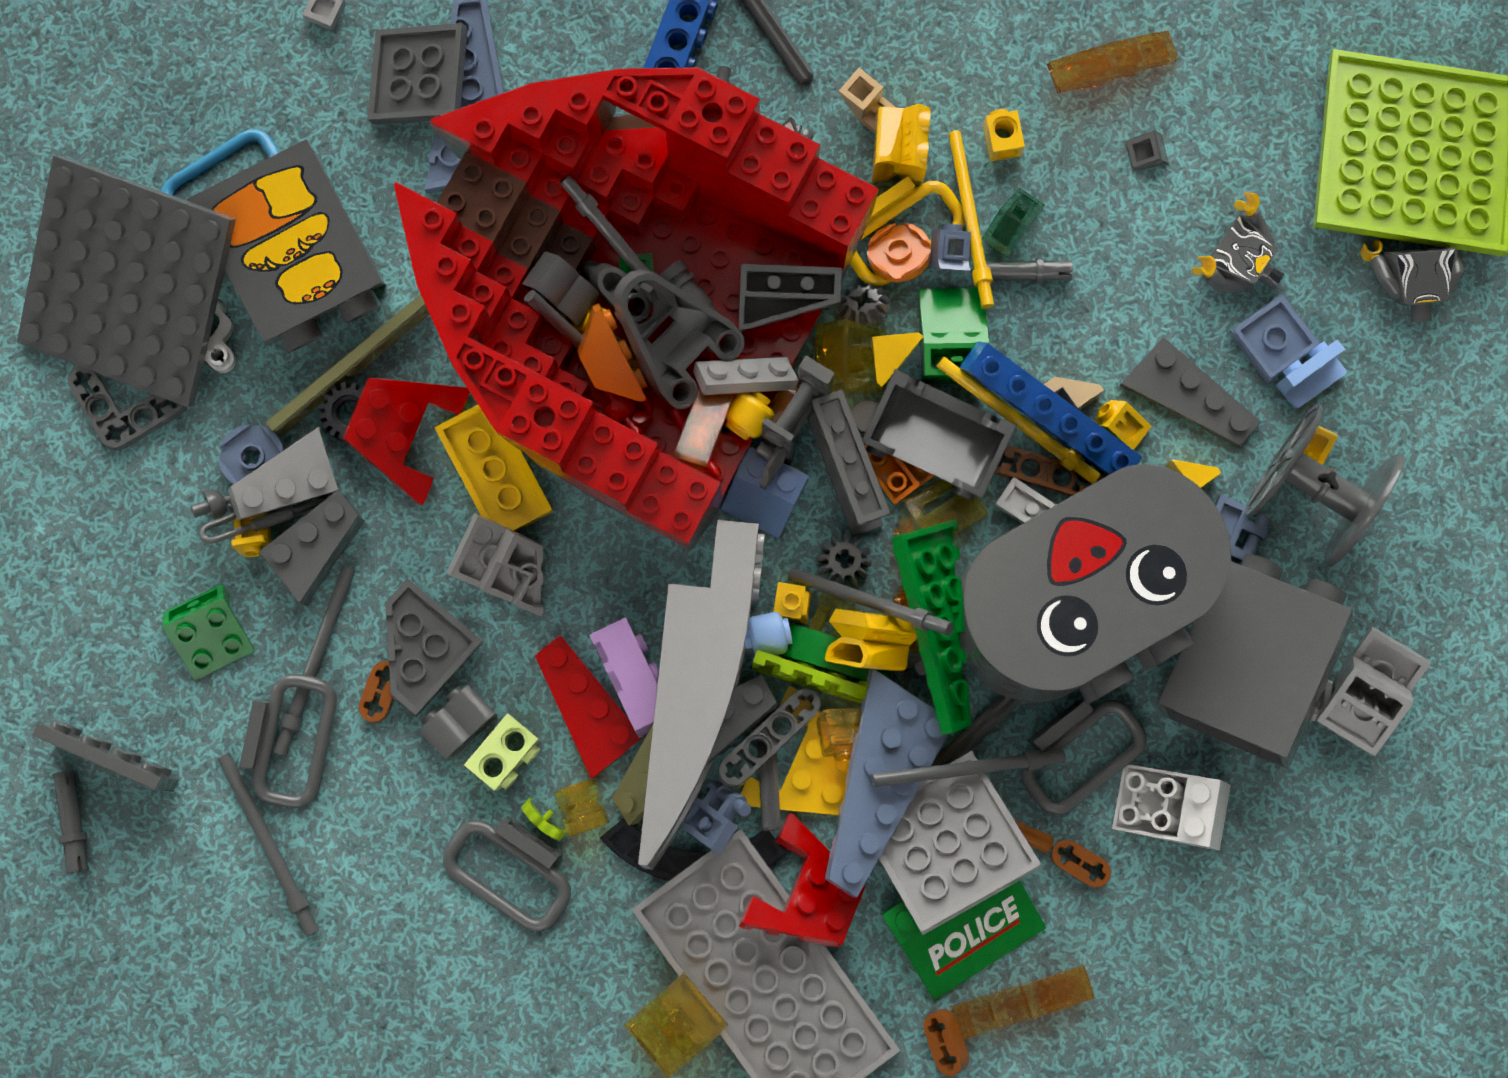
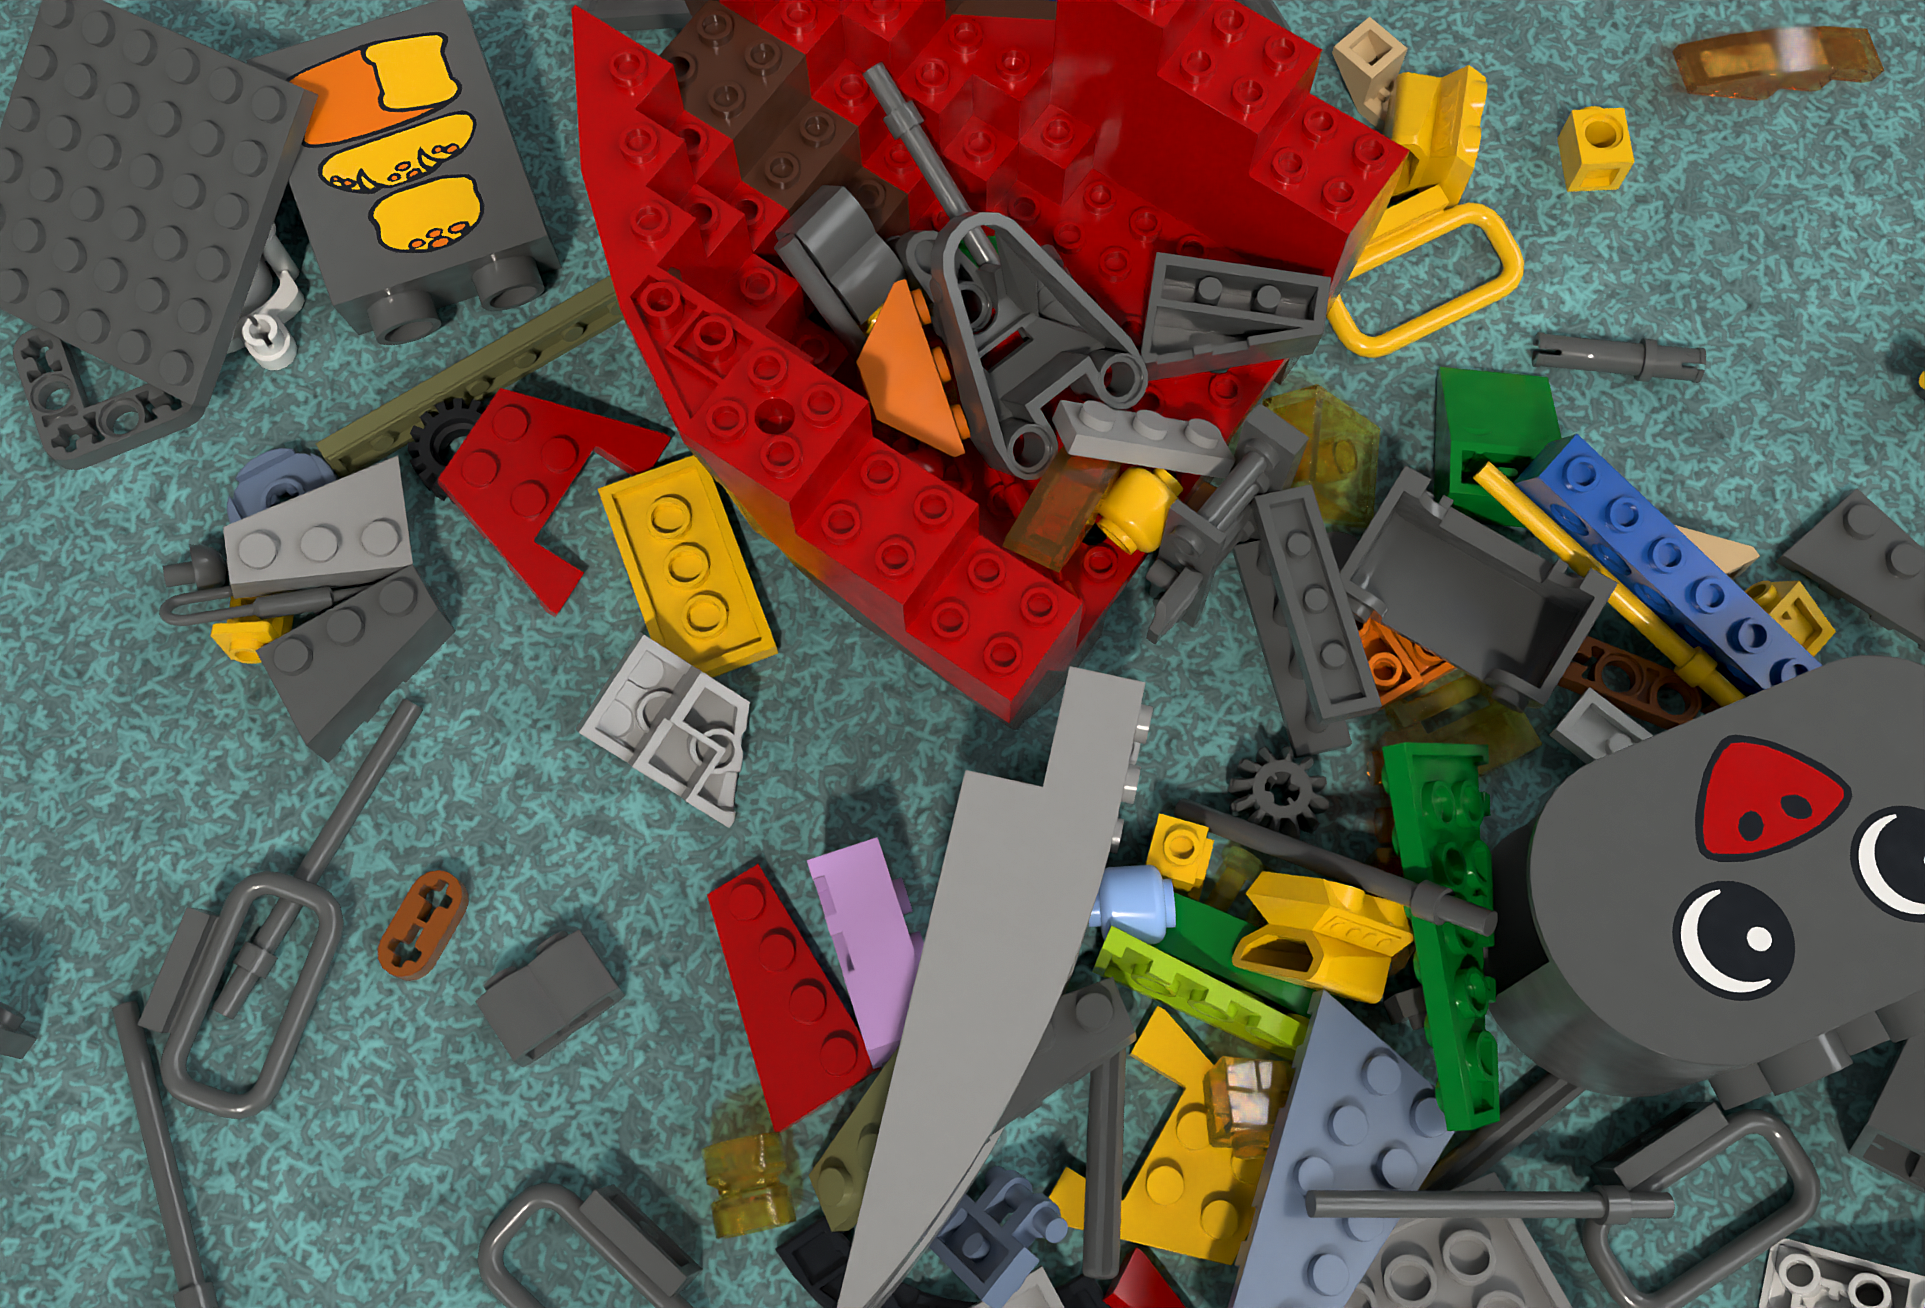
camera: 10 degrees right, 10 degrees down
(206, 632) = (142, 785): green bracket -> none
(423, 647) = (512, 855): dark grey plate -> none
(497, 747) = (612, 1051): yellowish green brick -> none
(542, 821) = (672, 1202): lime piece -> none
(766, 507) = (1172, 668): medium blue slope -> none
(771, 740) = (1109, 1091): dark grey beam -> none
(870, 312) = (1363, 377): dark grey gear -> none
(890, 353) = (1386, 447): yellow slope -> none
(899, 252) = (1411, 305): orange tile -> none
(950, 248) = (1499, 303): sand blue window -> none
(981, 274) = (1552, 348): yellow bar -> none
(1012, 222) = (1602, 281): clear green slope -> none
(1147, 151) = (1828, 201): dark grey slope -> none

